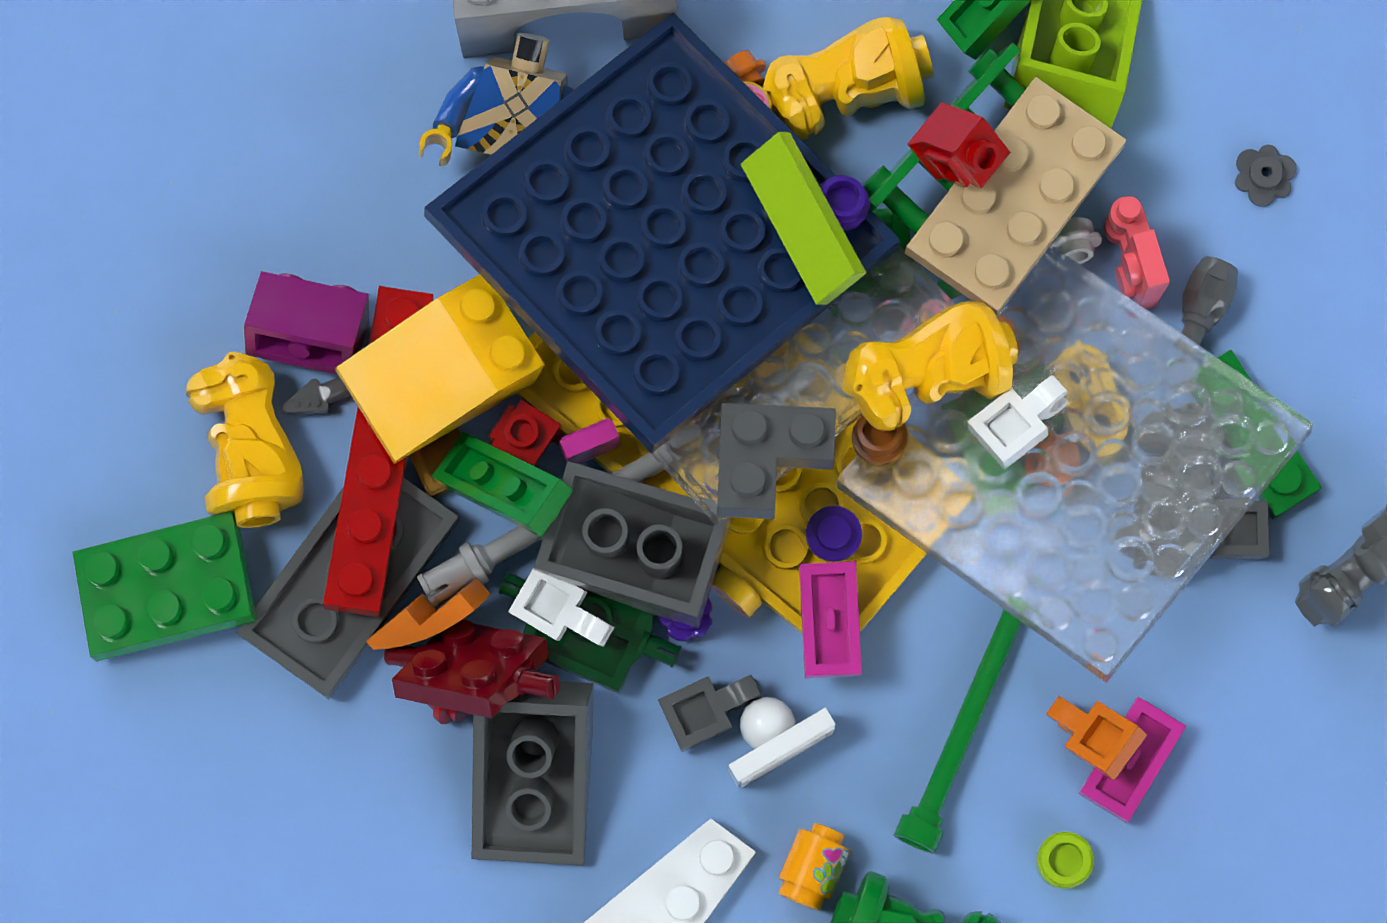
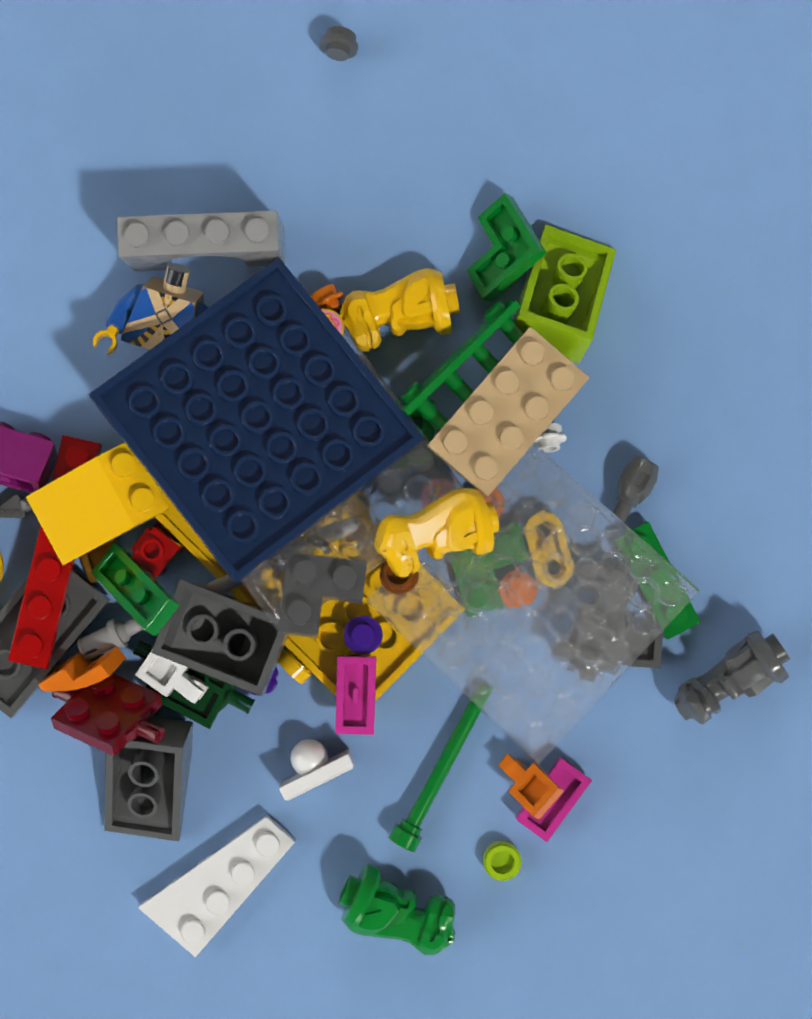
camera: 10 degrees right, 10 degrees up
(590, 442) = (195, 561): dark pink tile -> none
(700, 711) = (265, 745): dark grey plate -> none
(803, 218) = (355, 422): lime tile -> none
(813, 866) = (332, 856): light orange brick -> none
(847, 200) = (384, 411): dark purple plate -> none
(958, 146) = (470, 378): red window -> none
(1014, 424) = (491, 576): white plate -> none
(1142, 264) = (591, 464): coral plate -> none
(1260, 188) = (682, 408): dark grey plant -> none

